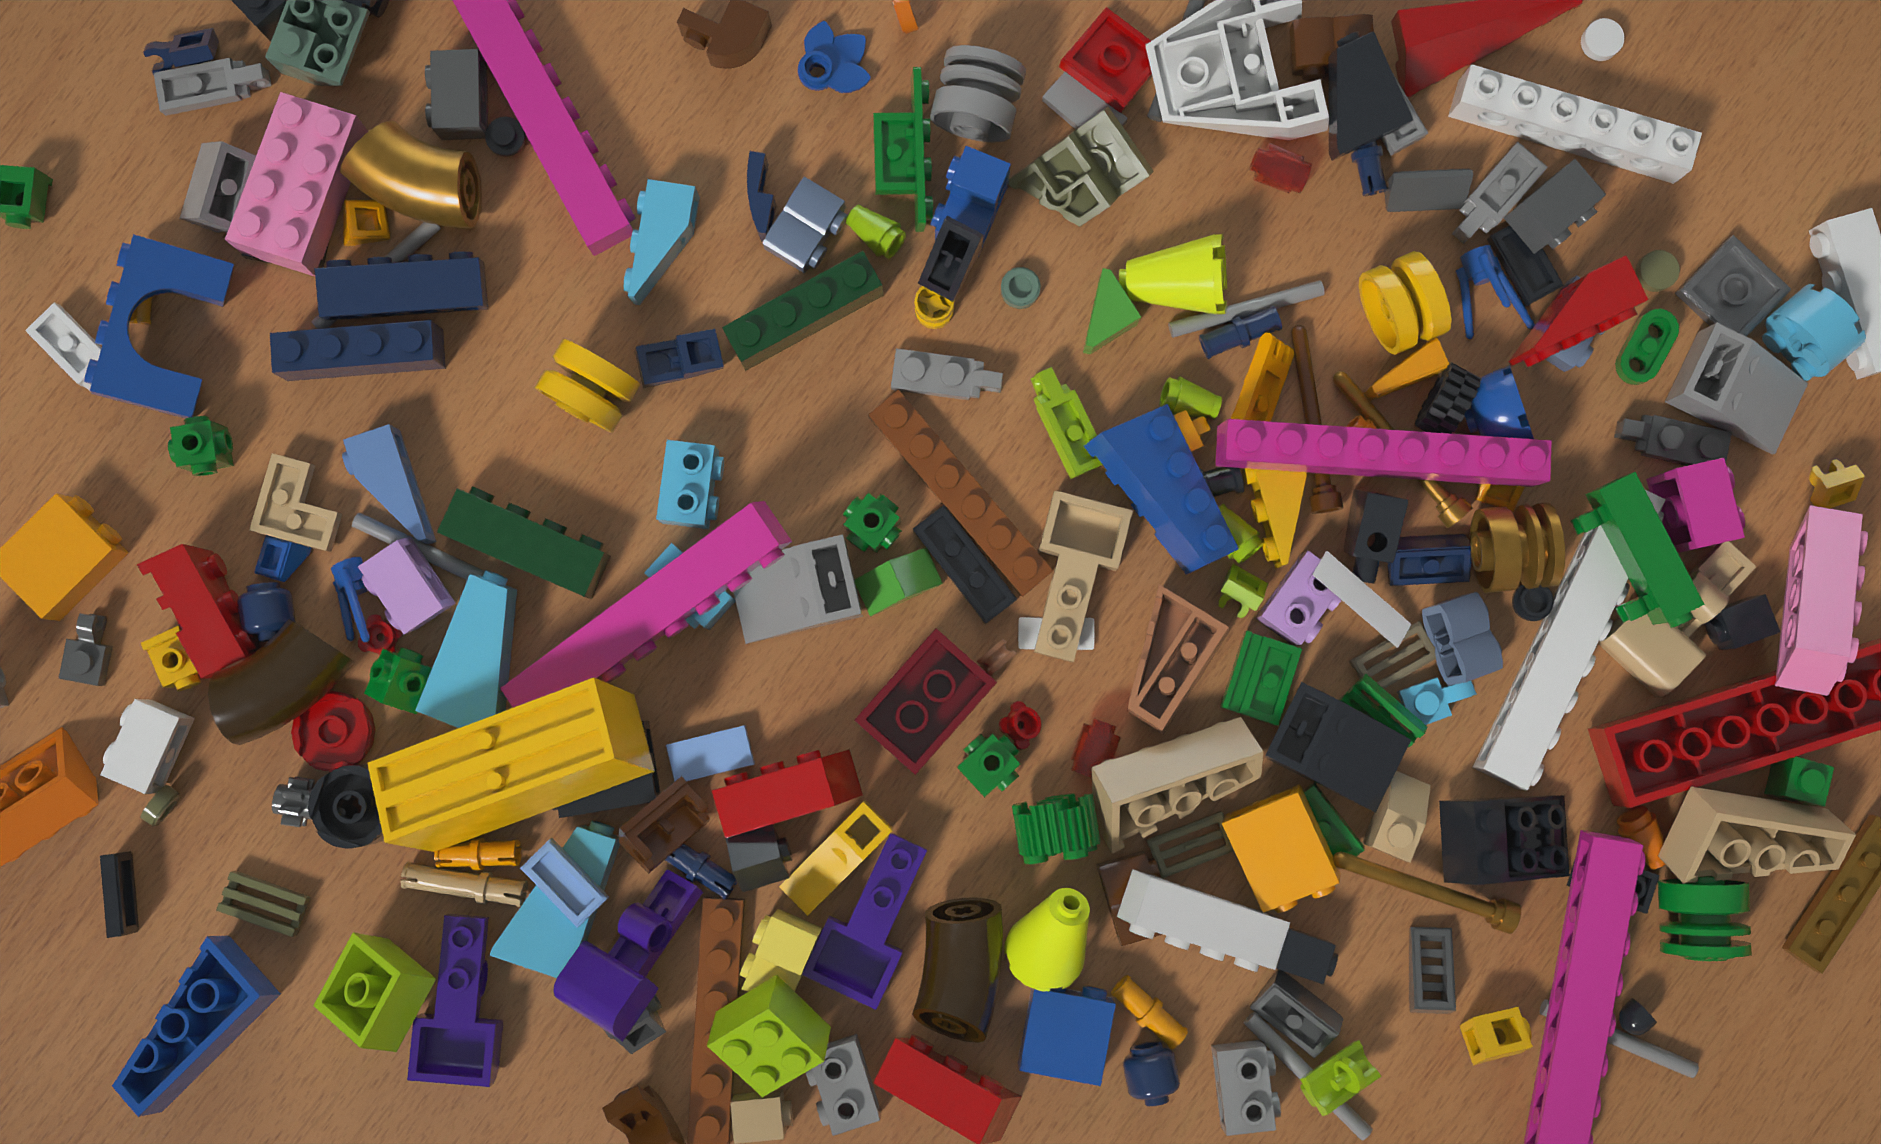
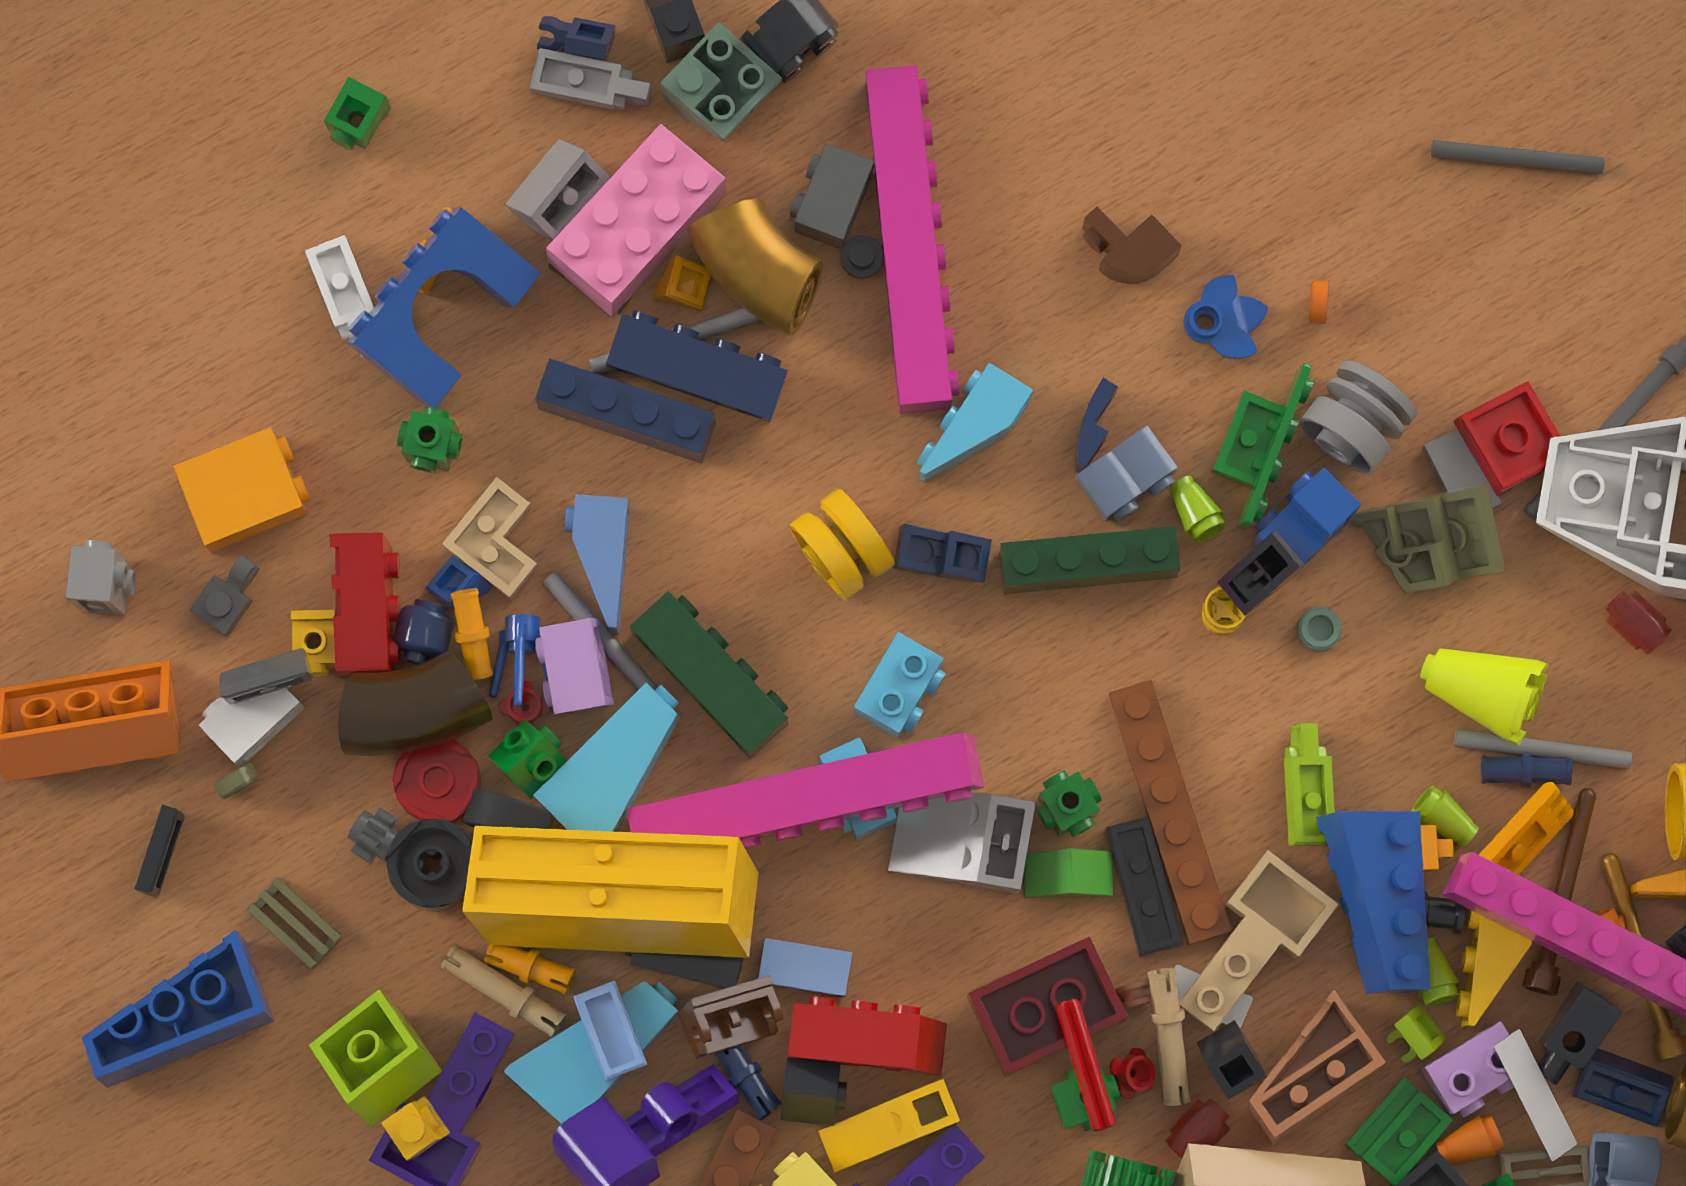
camera: 25 degrees right, 5 degrees down
(138, 710) = (265, 676): none -> dark grey slope
(307, 595) = (472, 633): none -> light orange pin
(392, 737) = (498, 810): none -> black tyre
(431, 1039) = (415, 1128): none -> yellow brick
(942, 375) = (1202, 684): light grey hinge -> none
(978, 738) = (1085, 1064): none -> red axle
(1031, 669) = (1169, 1036): none -> tan pin
(1098, 679) = (1231, 1059): none -> black brick
(1111, 313) = (1400, 696): bright green slope -> none
(1324, 660) = (1471, 1141): none -> orange cone

